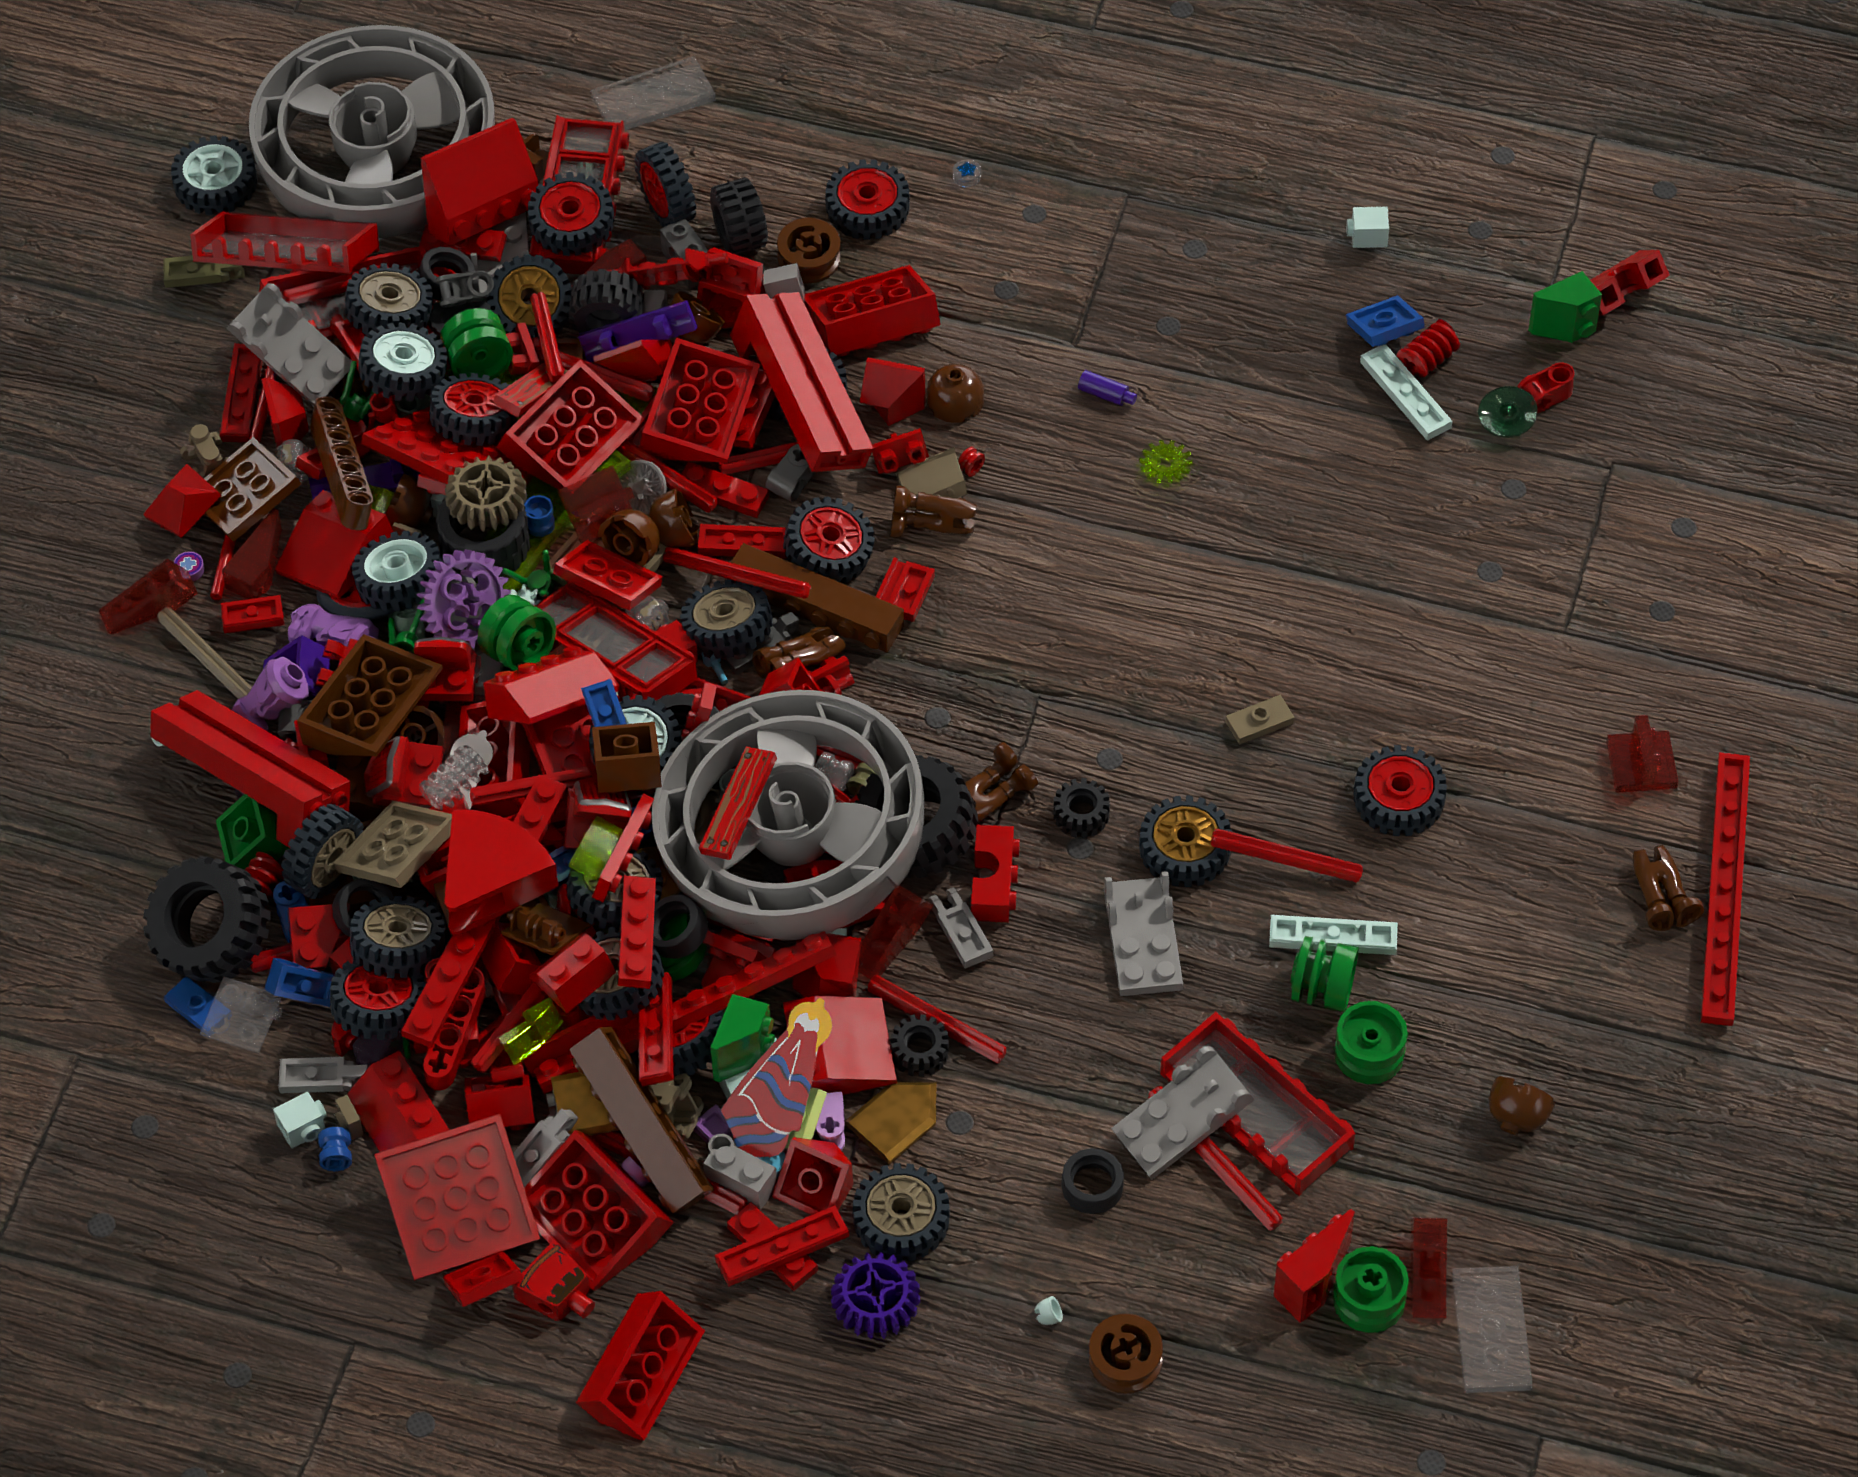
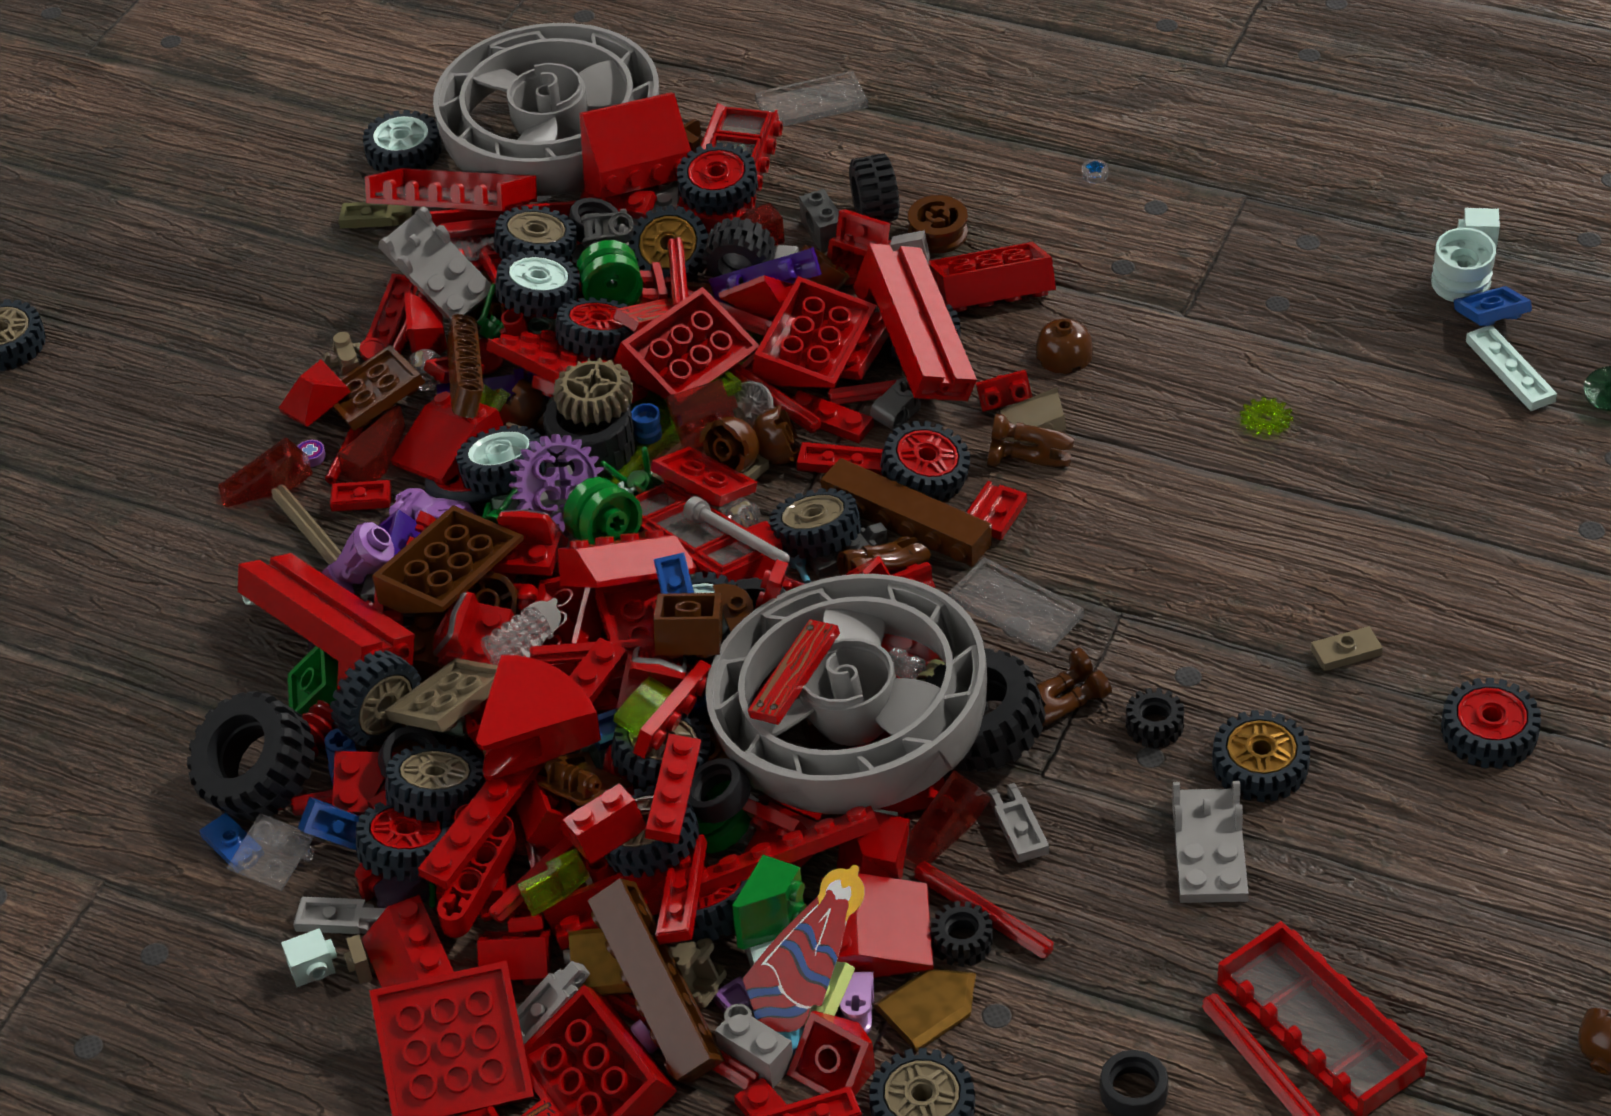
camera: 10 degrees right, 10 degrees down
(232, 439) = (370, 347): none -> red piece
(335, 1151) = (338, 987): blue wheel -> none
(451, 725) = (526, 594): none -> red arm
(611, 619) = (700, 511): none -> light grey piece
(665, 184) = (808, 158): black wheel -> none
(669, 729) = (735, 604): none -> reddish brown plate
(676, 269) = (807, 224): red plate -> none
(737, 572) = (831, 481): red axle -> none
(867, 199) = (998, 186): wheel -> none
(893, 389) = (1004, 336): red slope -> none
(935, 693) = (1016, 605): none -> clear tile
(971, 461) = (1073, 404): red bush -> none
(995, 851) = (1054, 793): red arch -> none
(1106, 388) = (1212, 350): dark purple cylinder -> none
(1182, 1112) = (1238, 1020): light grey hinge -> none
(1286, 855) = (1367, 774): red axle -> none
(1324, 974) = (1401, 892): green wheel -> none
(1353, 275) = (1463, 263): none -> light aqua wheel
(1369, 936) = (1413, 857): light aqua plate -> none
(1370, 1042) = (1449, 965): green wheel -> none
(1429, 348) = (1536, 330): red piece -> none

